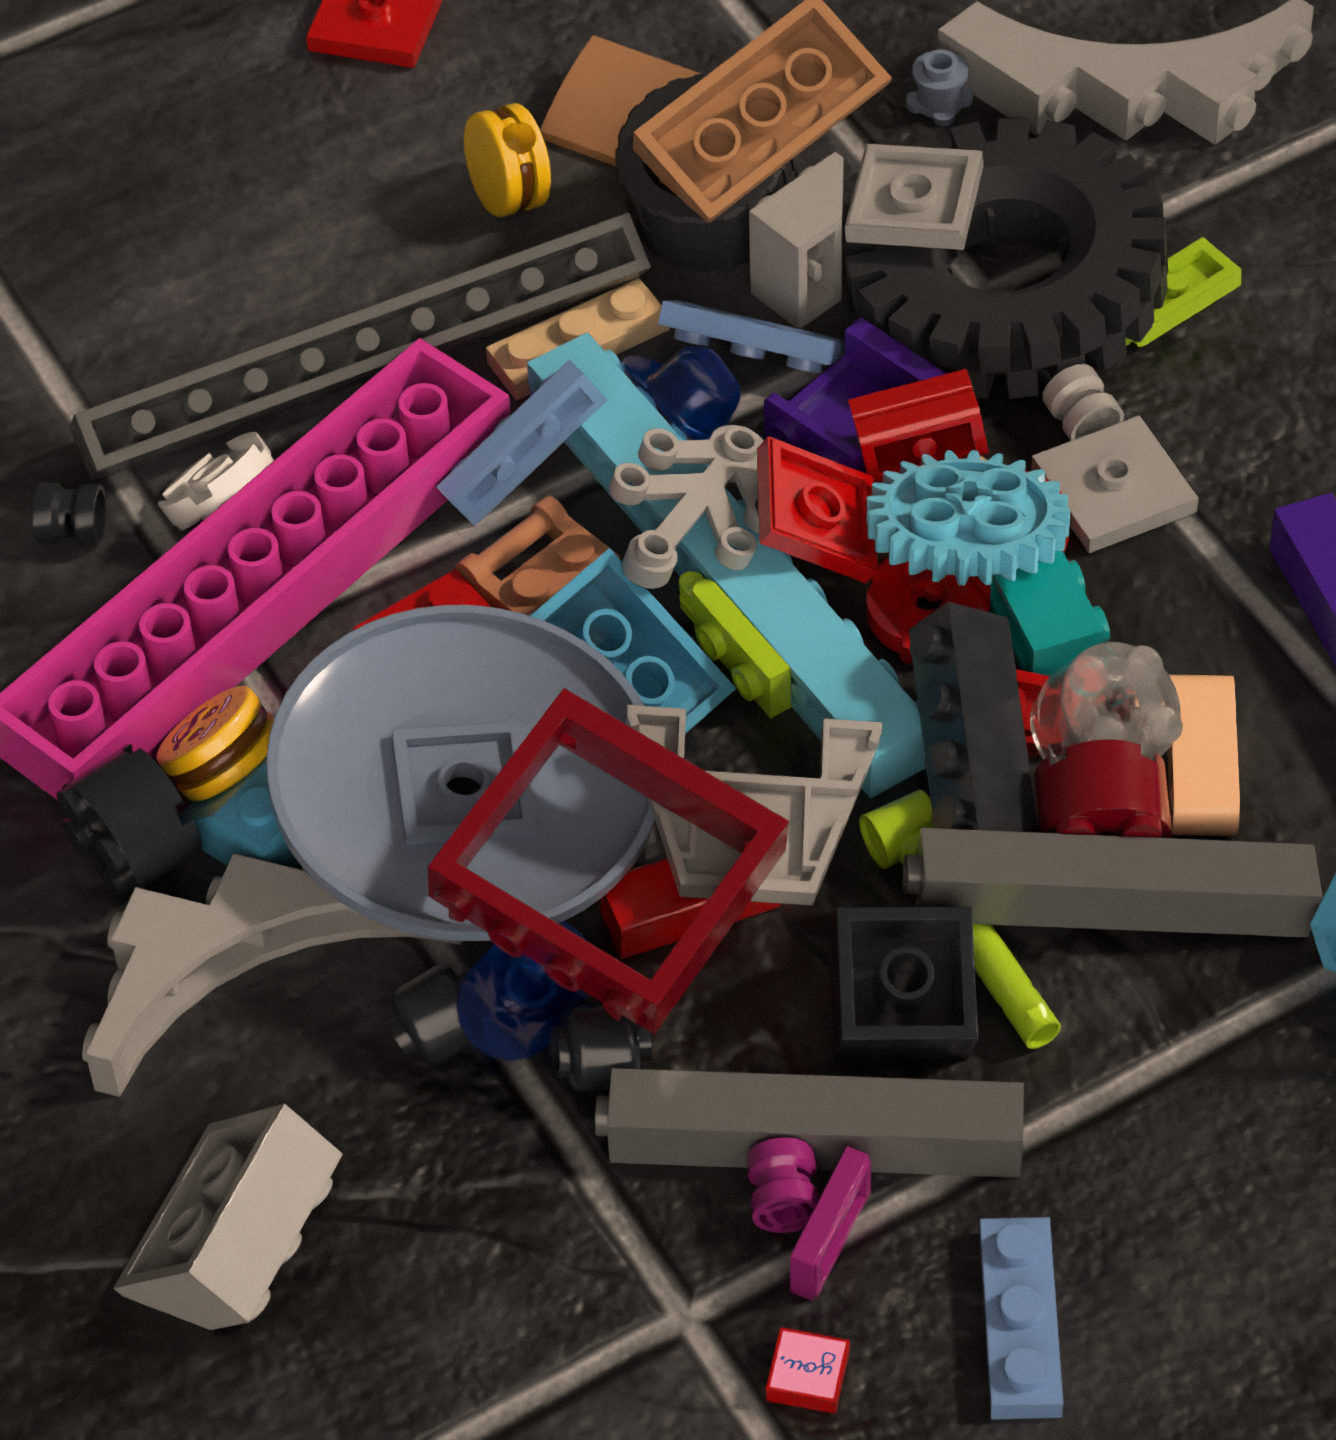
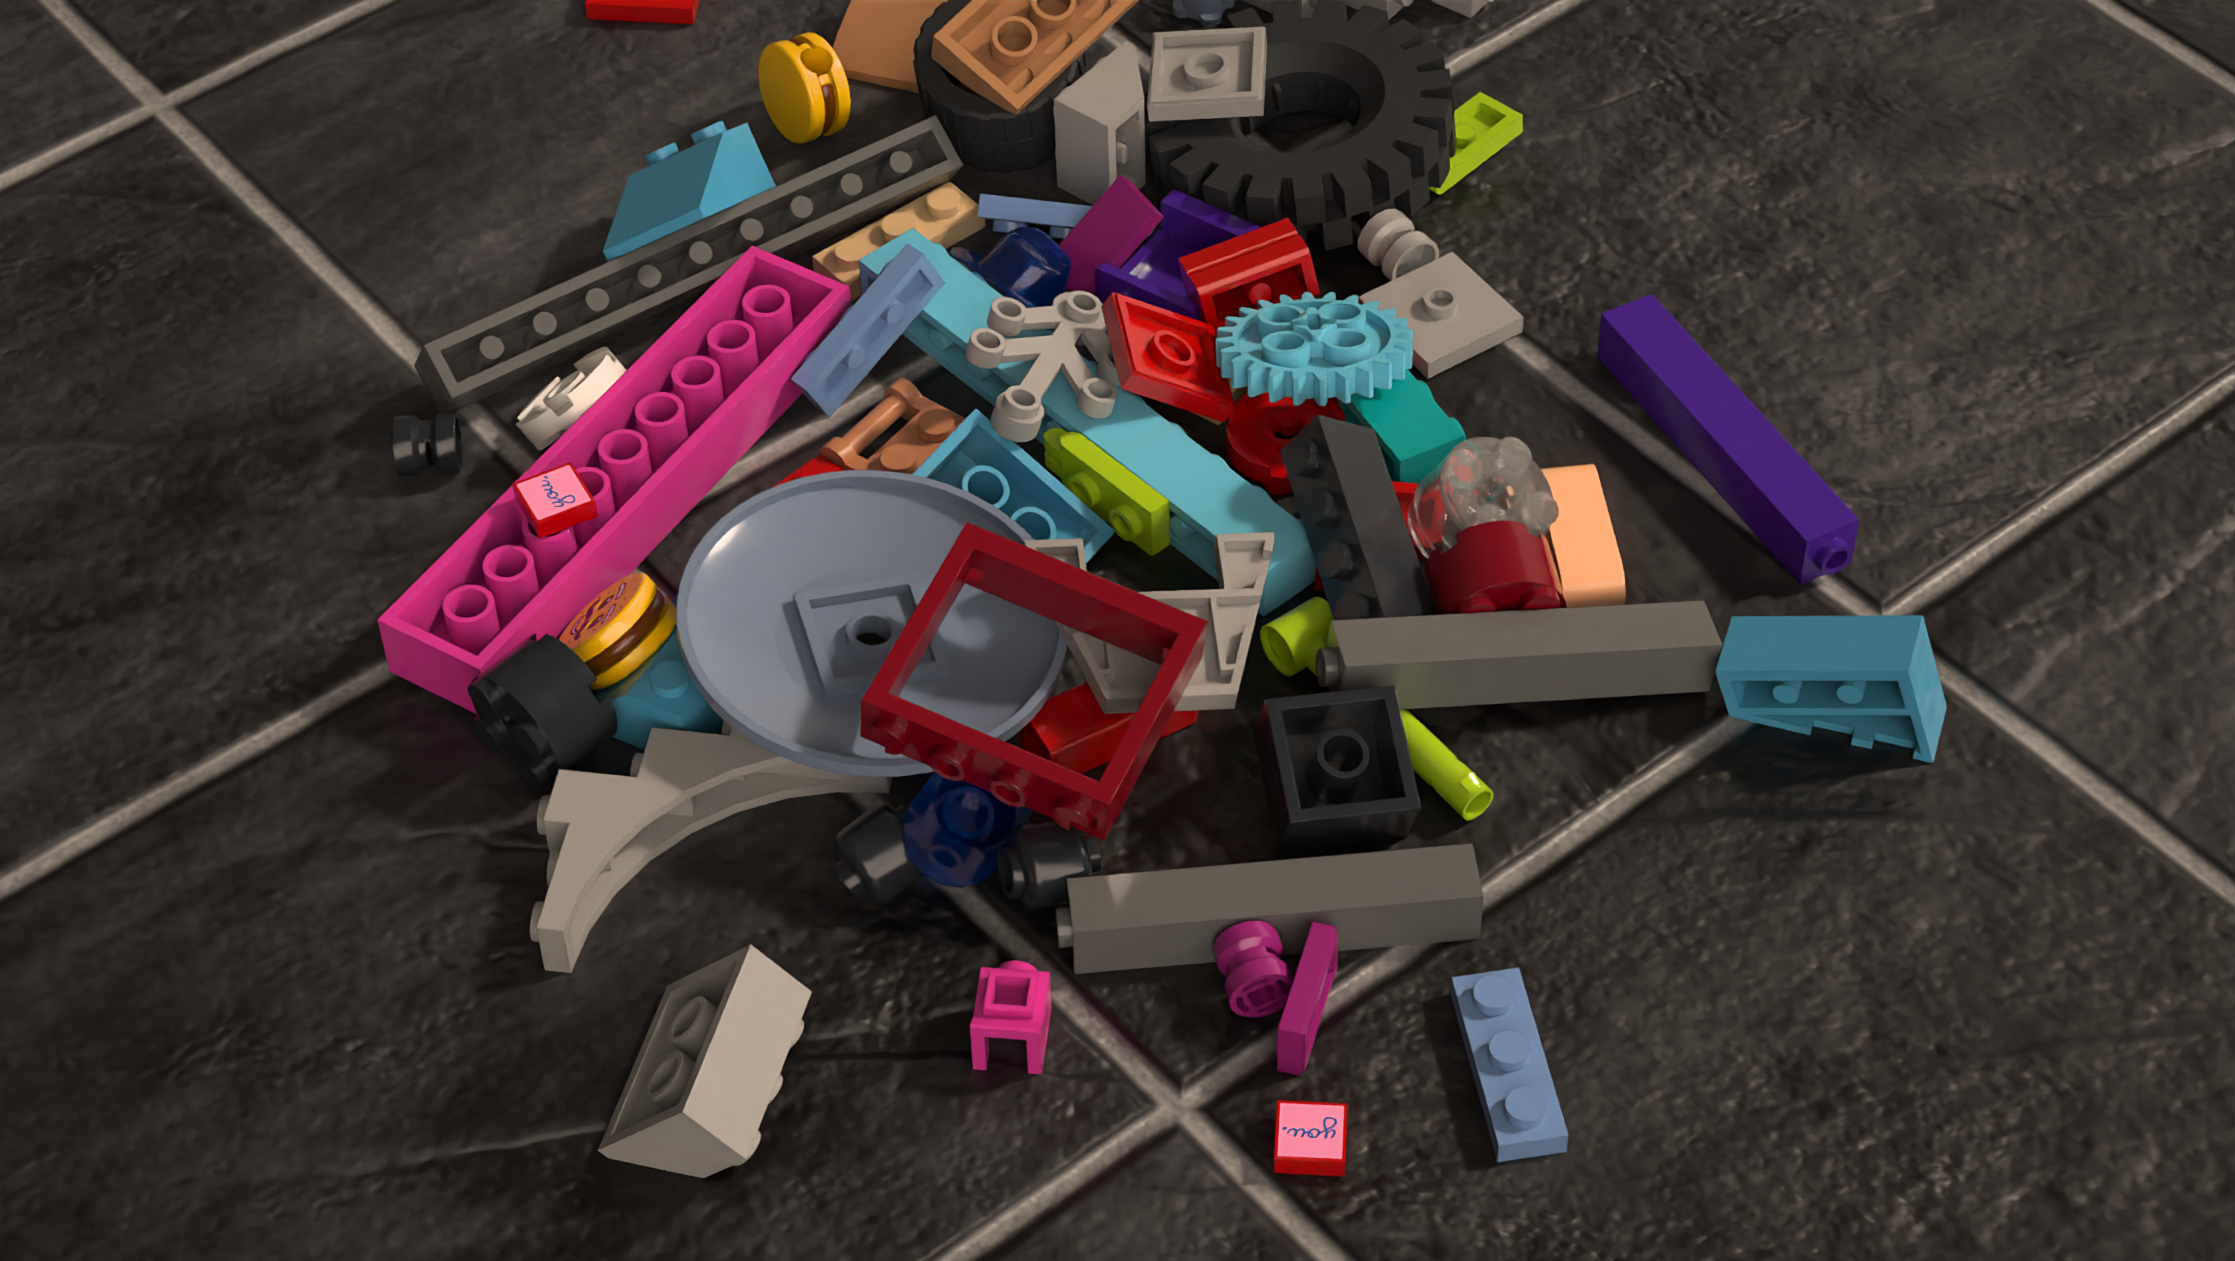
camera: 10 degrees left, 5 degrees down
(175, 600) = (555, 500): none -> tile
(365, 267) = (687, 186): none -> dark azure slope
(542, 1174) = (1012, 1005): none -> dark pink window
(783, 362) = (1109, 232): none -> magenta tile

